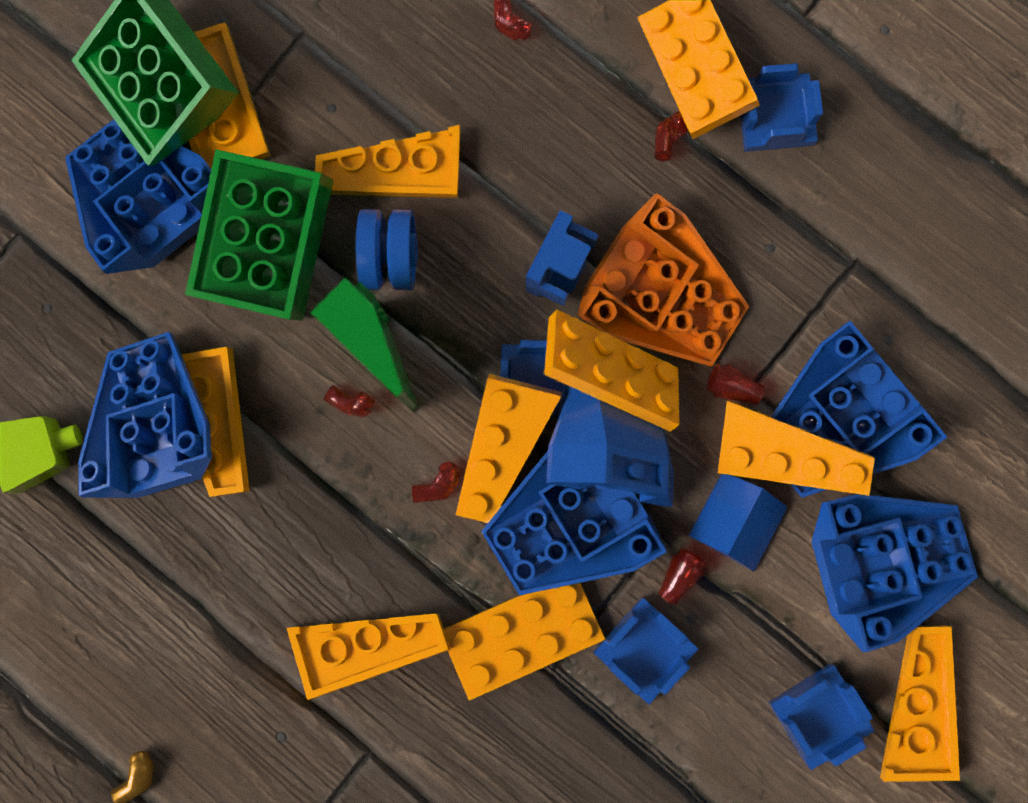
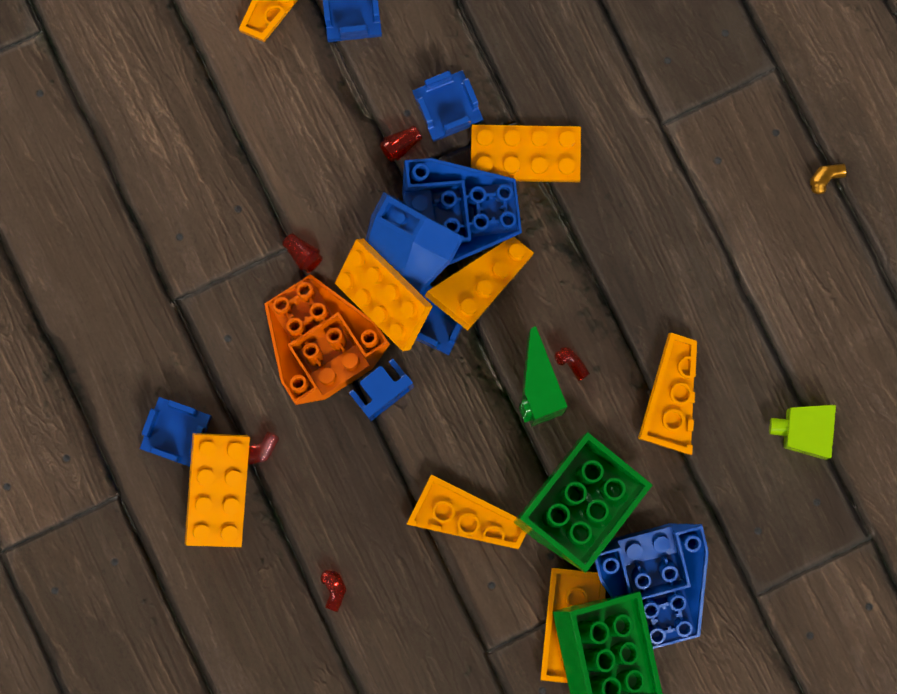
camera: 155 degrees left, 0 degrees up
(144, 424) = (718, 411): blue wedge -> none
(356, 651) = (645, 193): light orange wing -> none
(386, 248) = (495, 451): blue wheel -> none
(441, 486) = (535, 276): clear red arm -> none
(738, 520) = (344, 161): blue slope -> none
(783, 453) = (294, 191): light orange wing -> none
(858, 402) = (238, 195): blue wedge -> none
(889, 564) = (257, 86): blue wedge -> none

